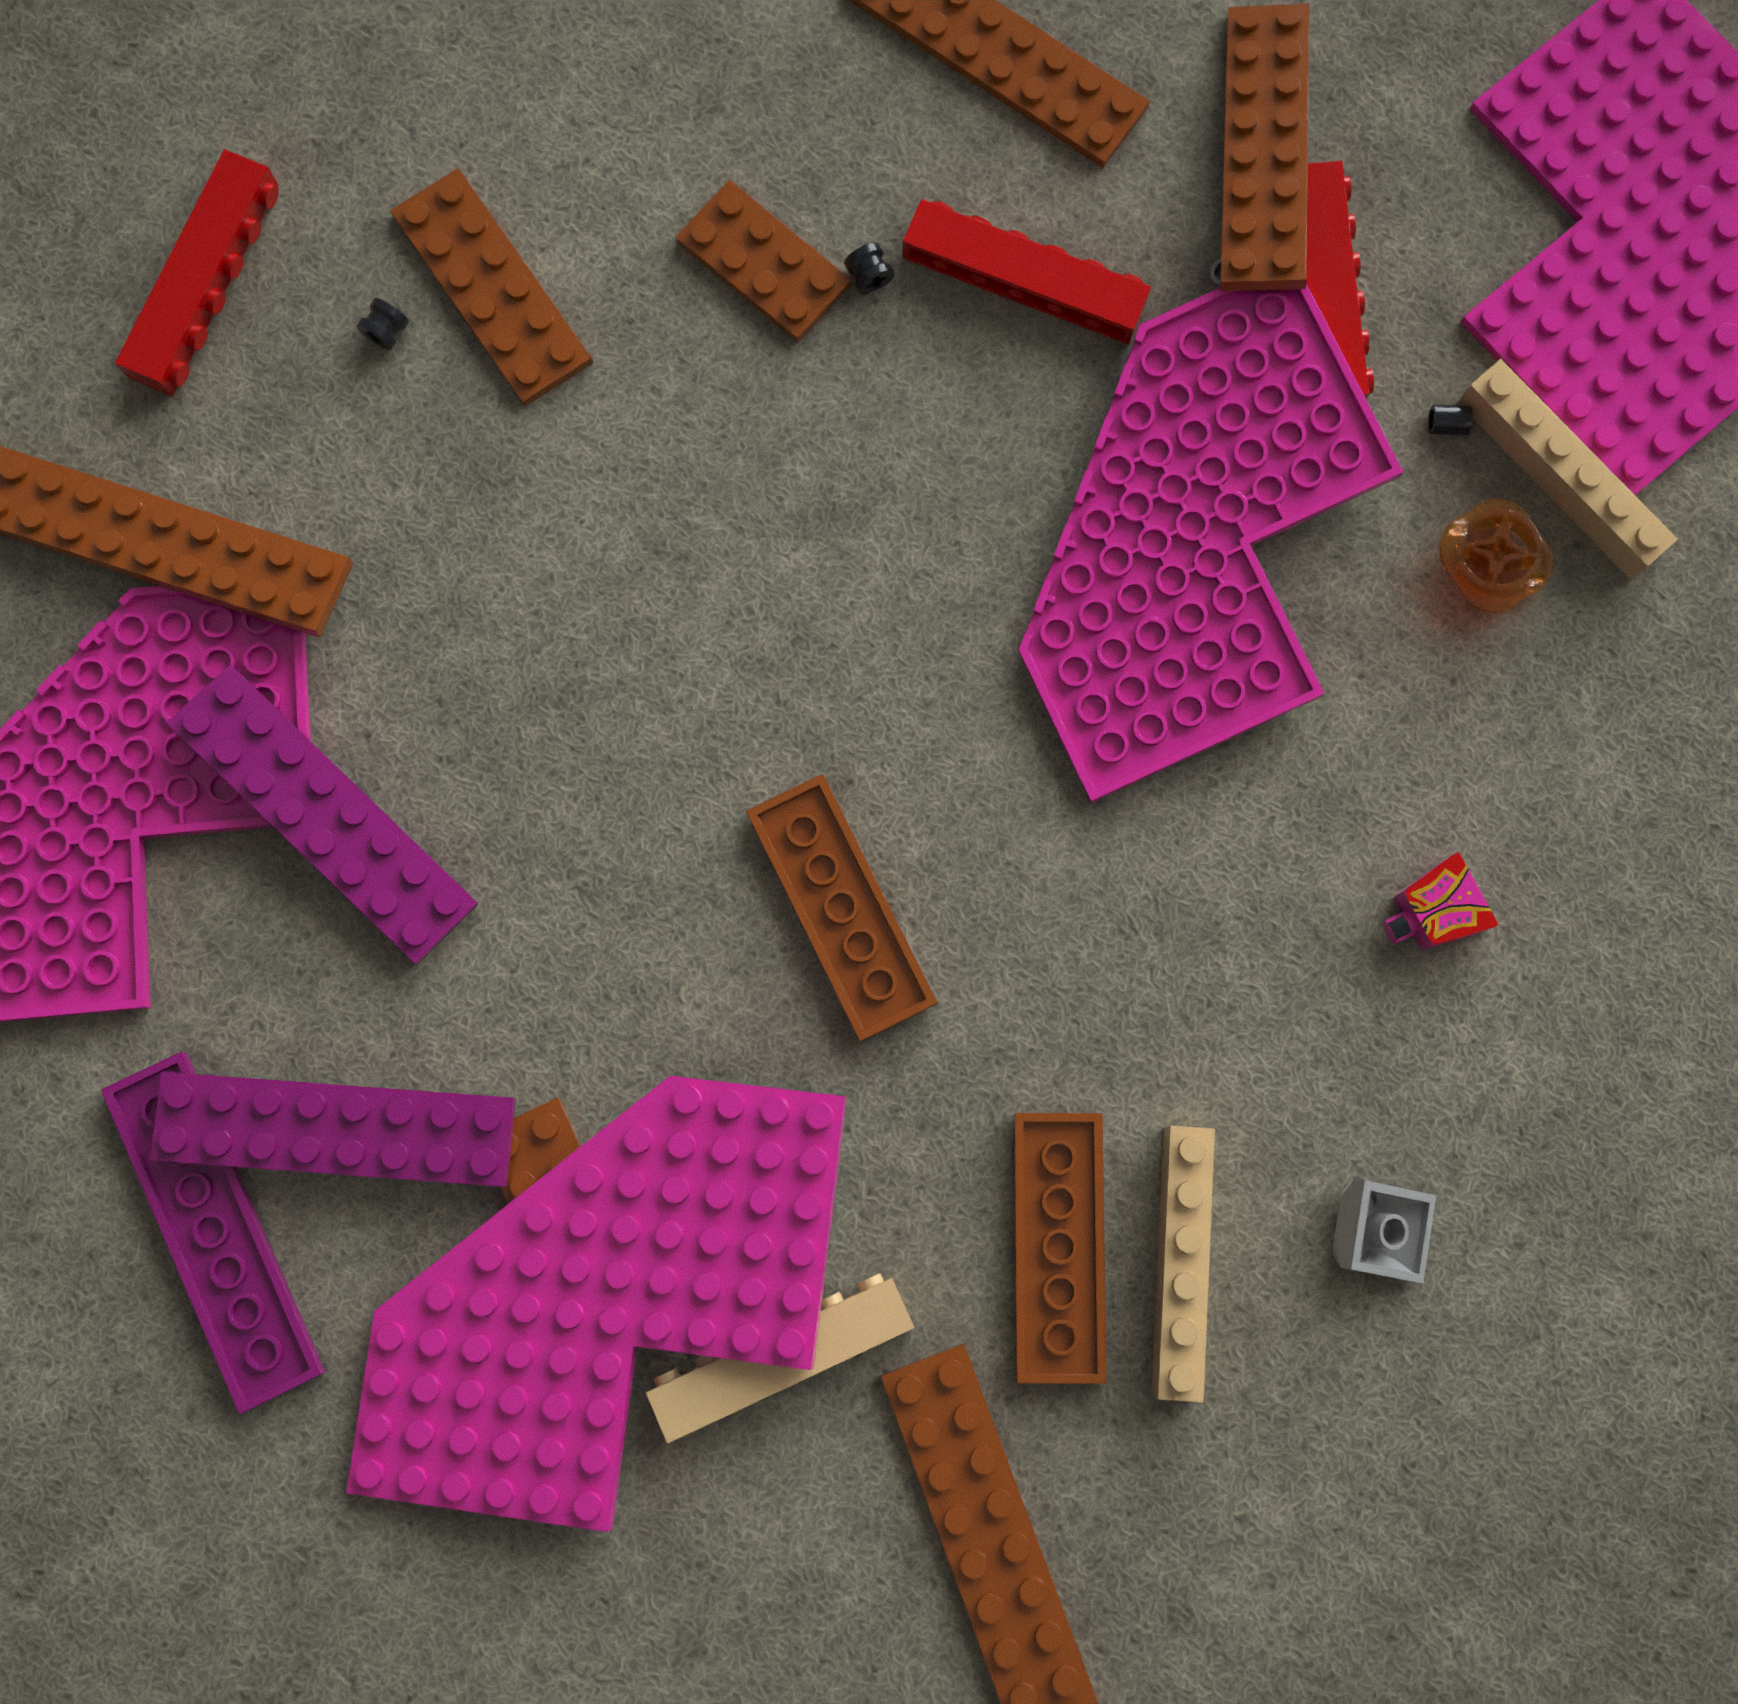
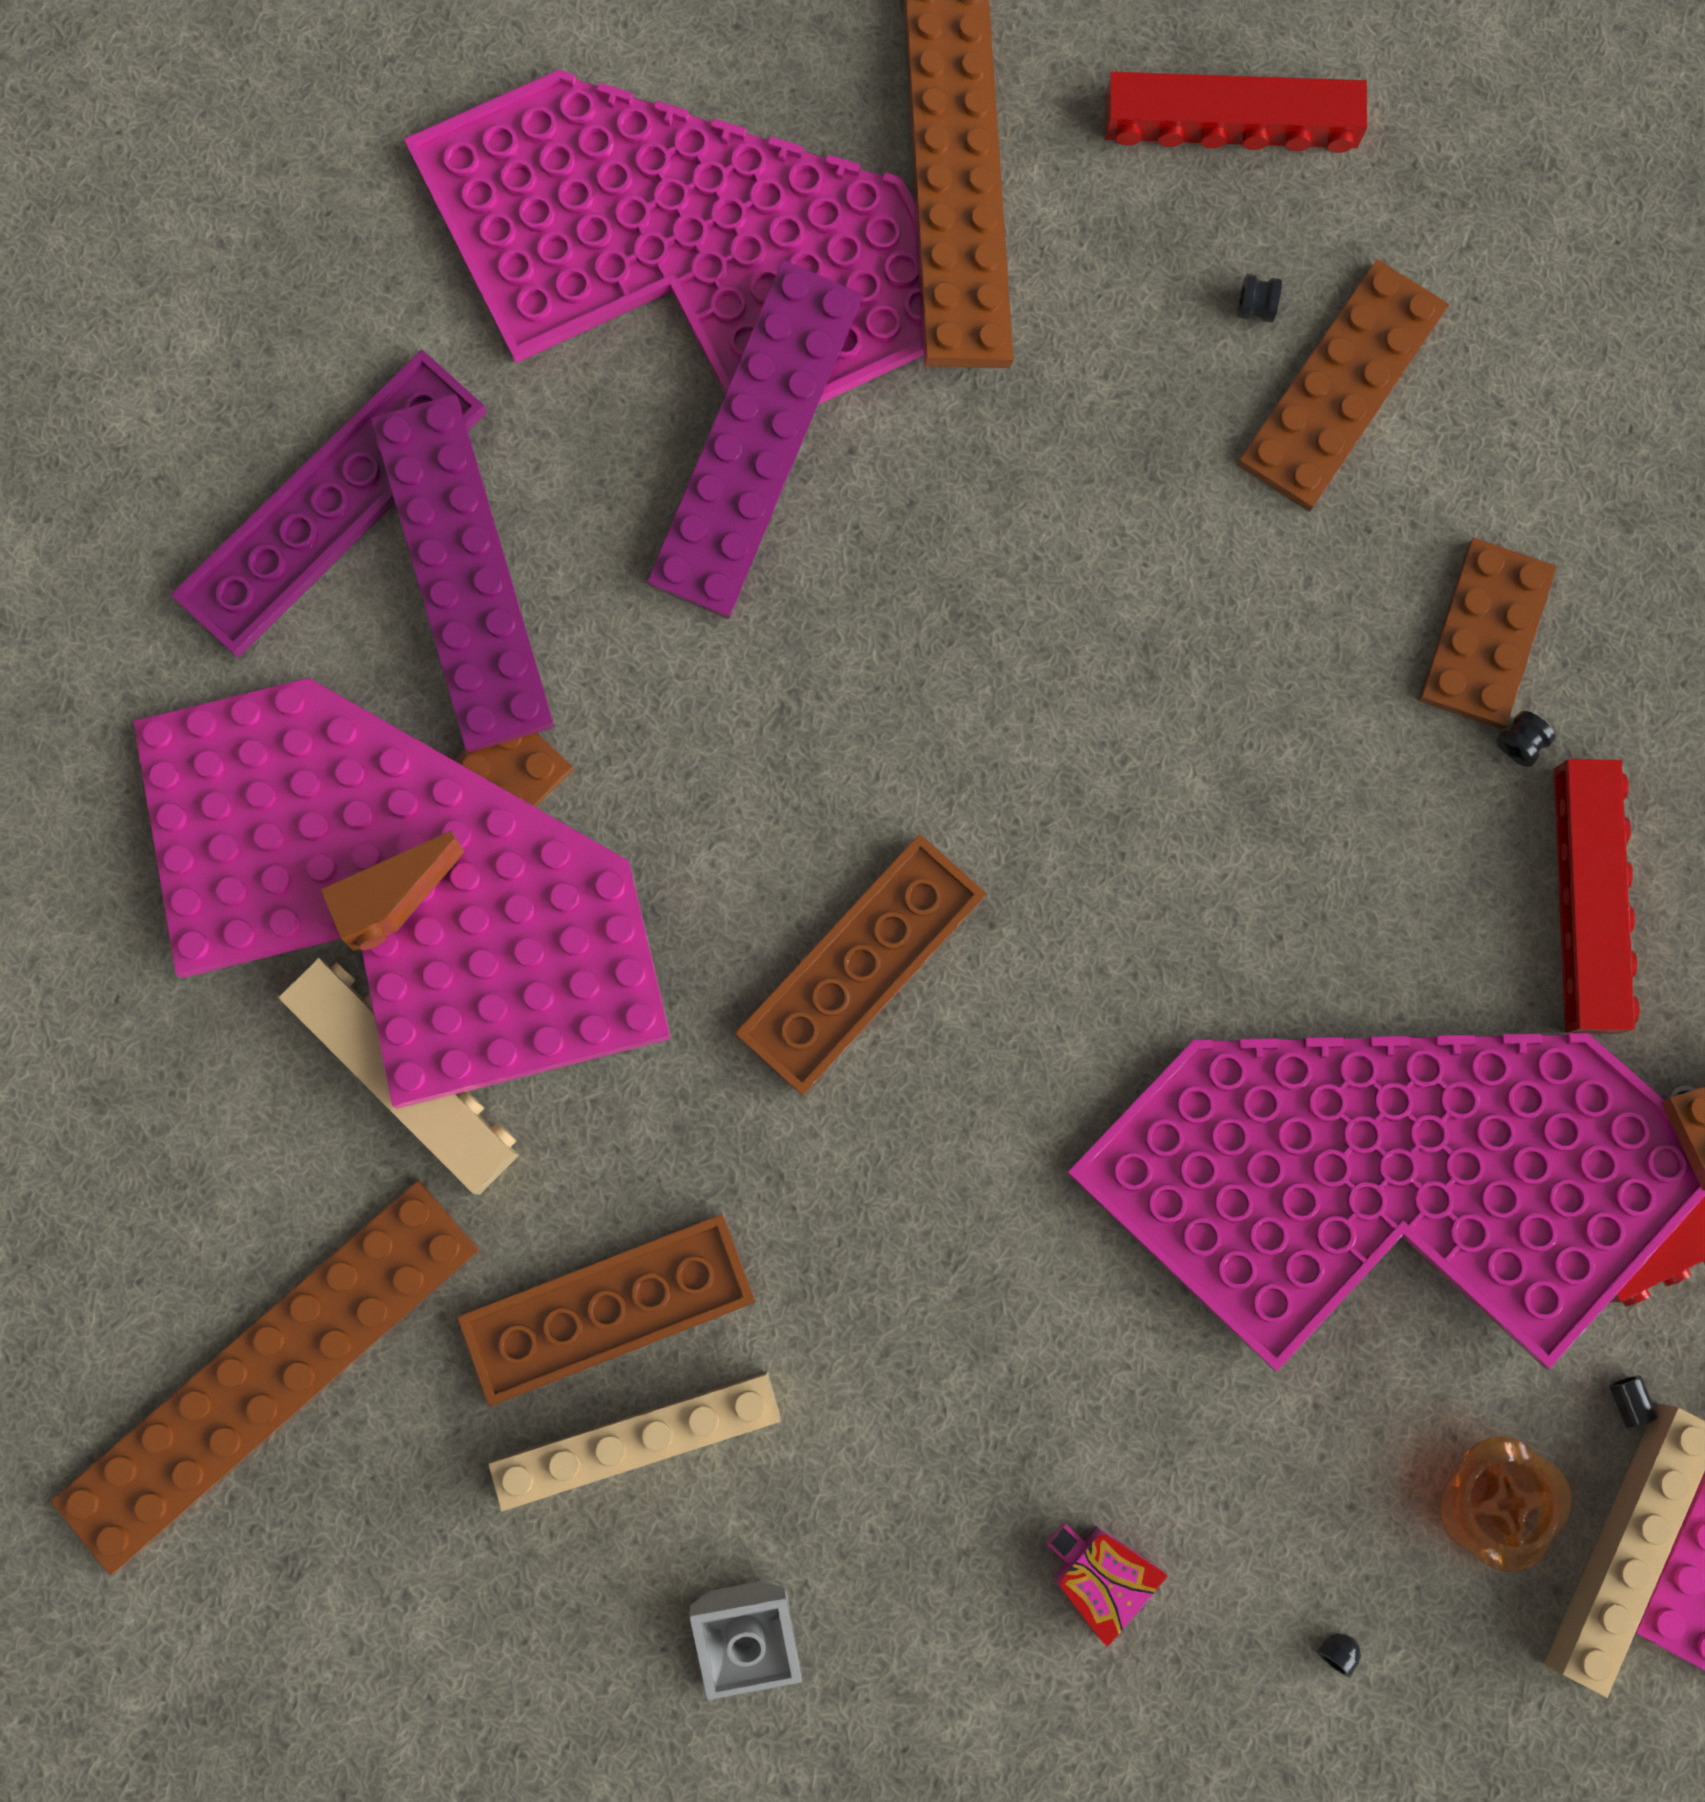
camera: 65 degrees right, 0 degrees up
(616, 1307) = (385, 895): none -> dark orange slope
(1567, 738) = (1341, 1653): none -> black hinge

